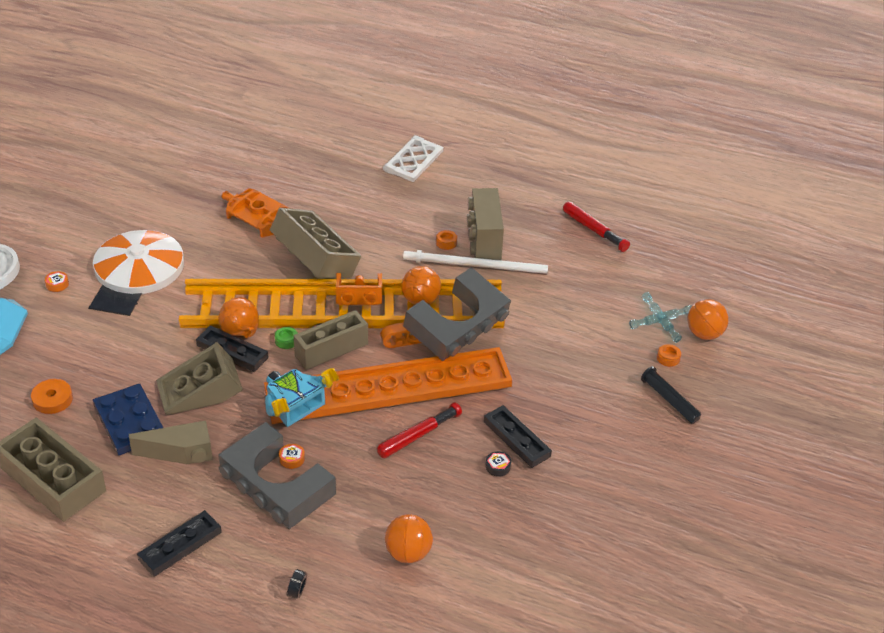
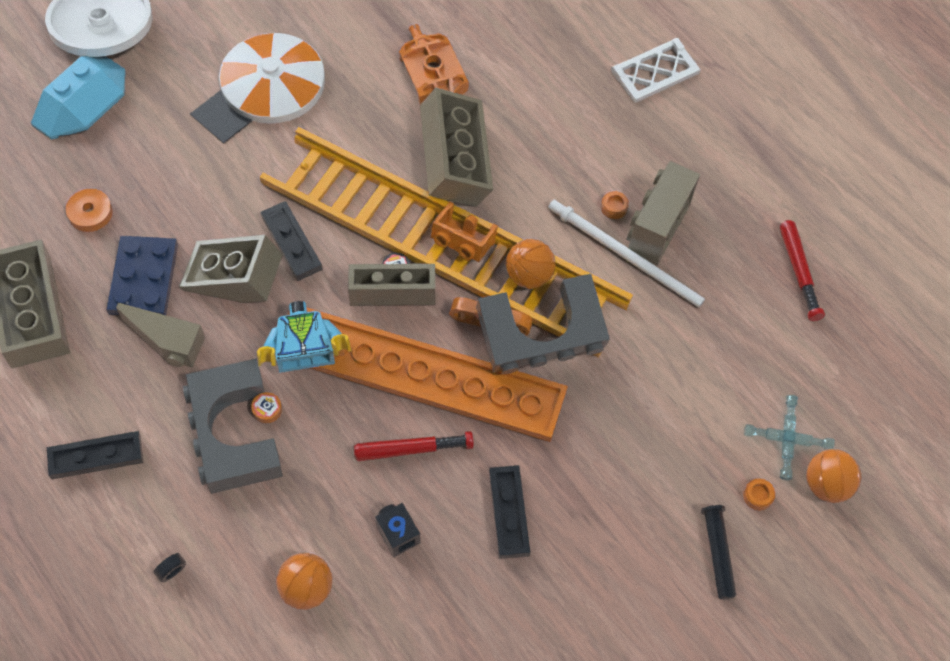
camera: 30 degrees right, 20 degrees up
(56, 281) = (177, 65): tile -> none
(239, 317) = (317, 207): orange cap -> none
(284, 337) = (357, 252): bright green tile -> none
(448, 480) = (397, 529): none -> black brick
(498, 463) = (467, 534): tile -> none

